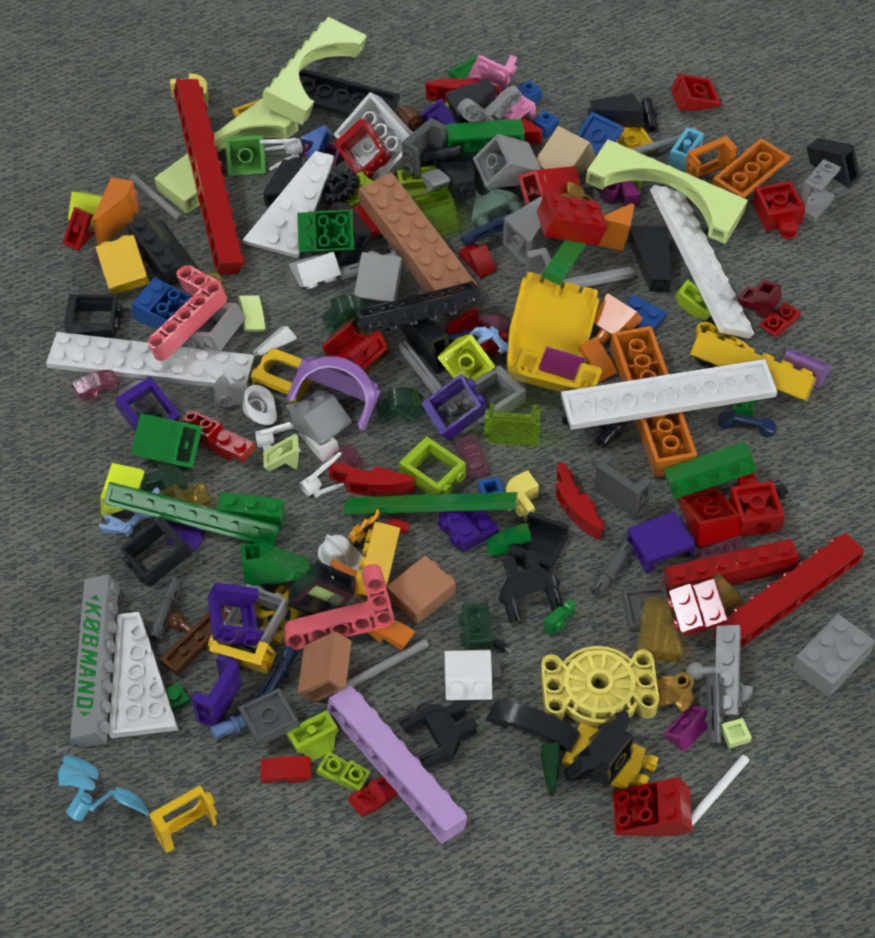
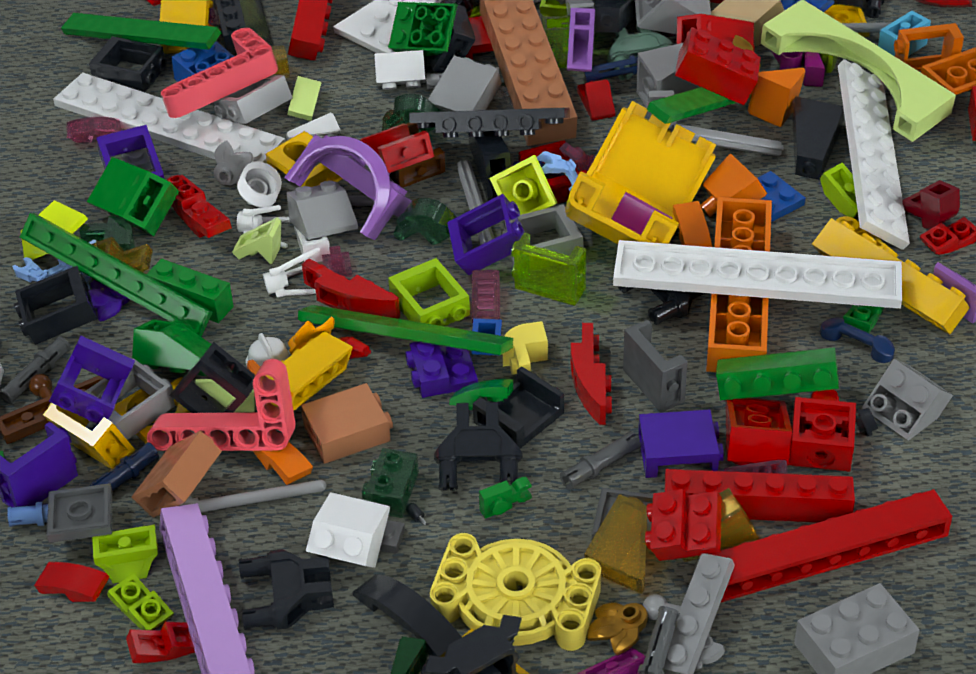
camera: 20 degrees right, 10 degrees down
(91, 283) = (142, 30): none -> green tile
(452, 214) = (581, 39): none -> medium lavender slope
(799, 465) = (906, 400): none -> light grey slope

